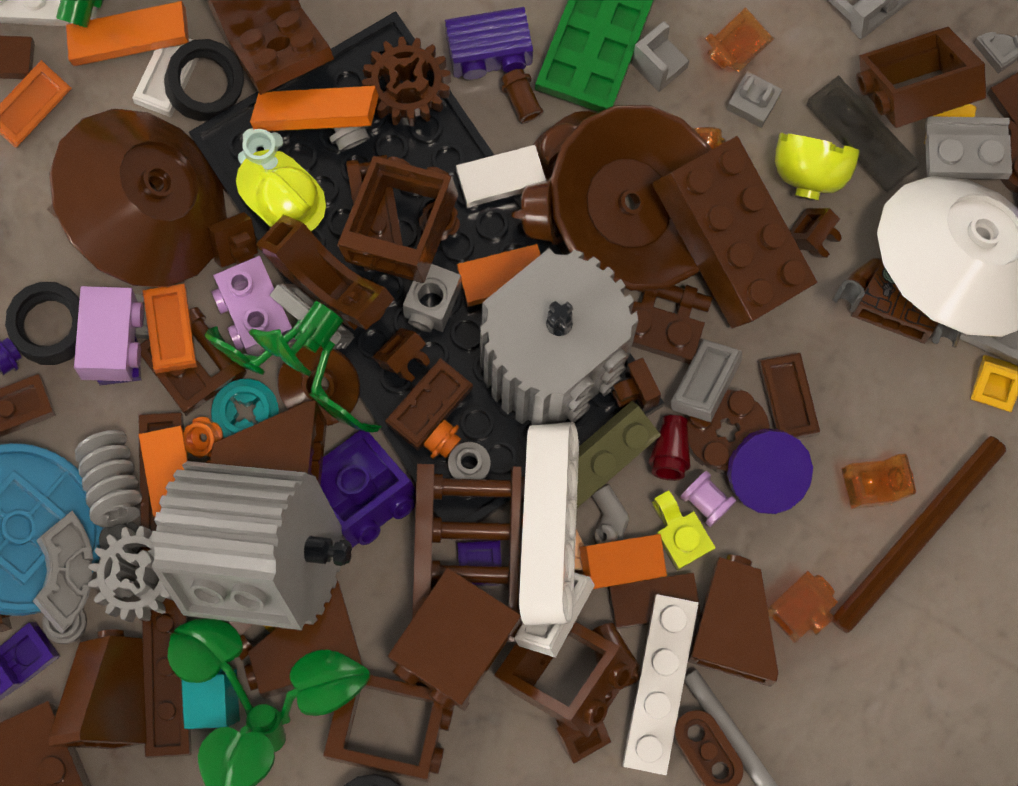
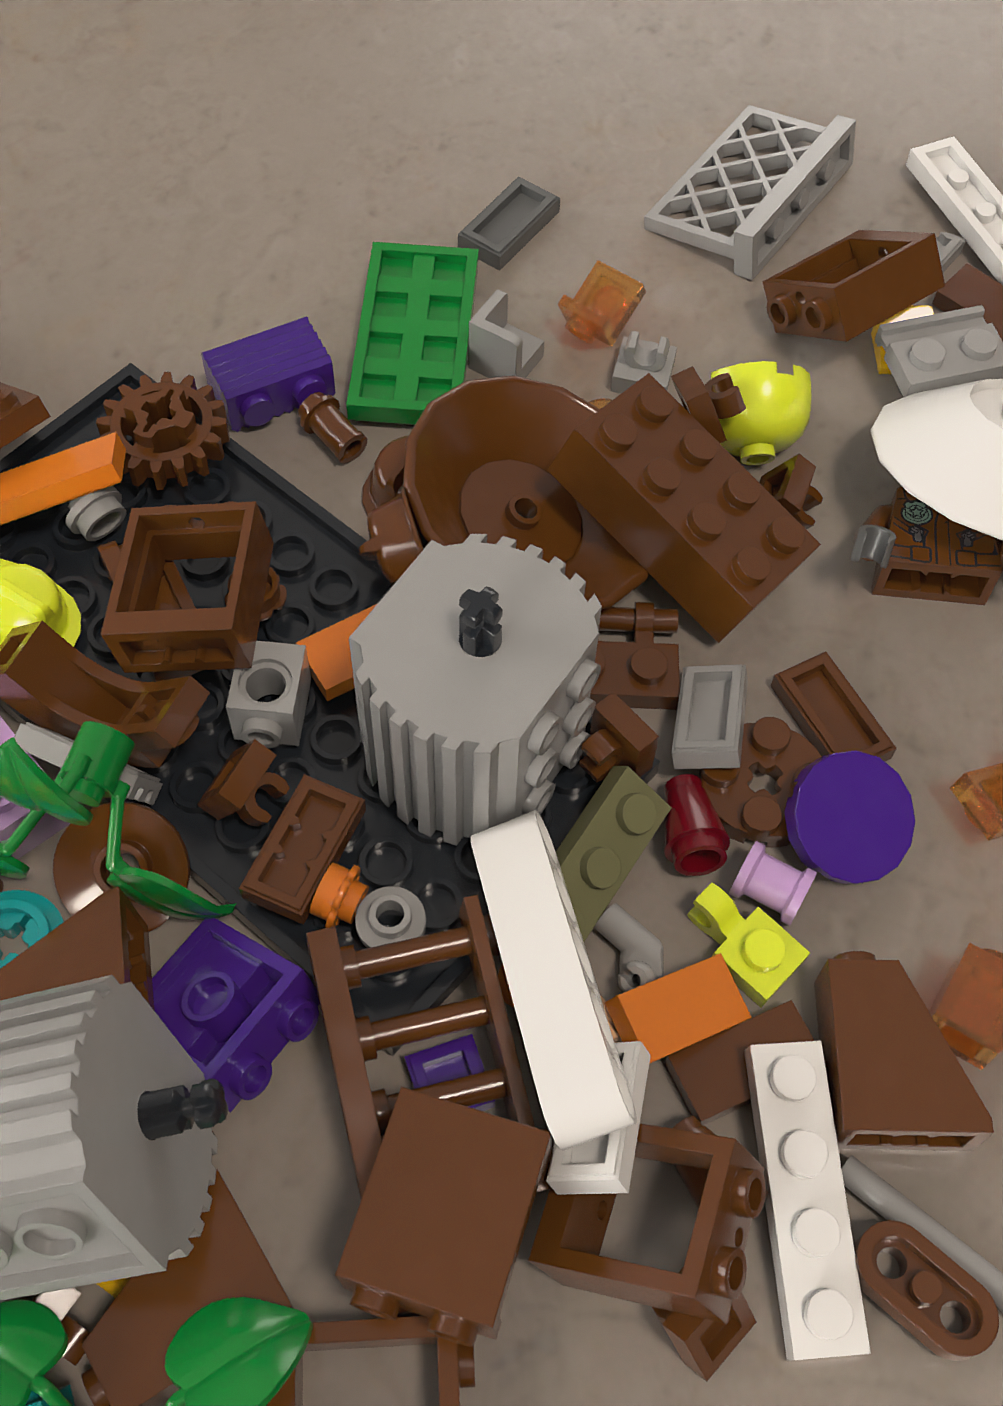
camera: 15 degrees left, 15 degrees down
(499, 175) = (325, 520): white tile -> none
(774, 161) = (710, 401): none -> reddish brown tile
(860, 128) = (836, 388): clear smoke plate -> none

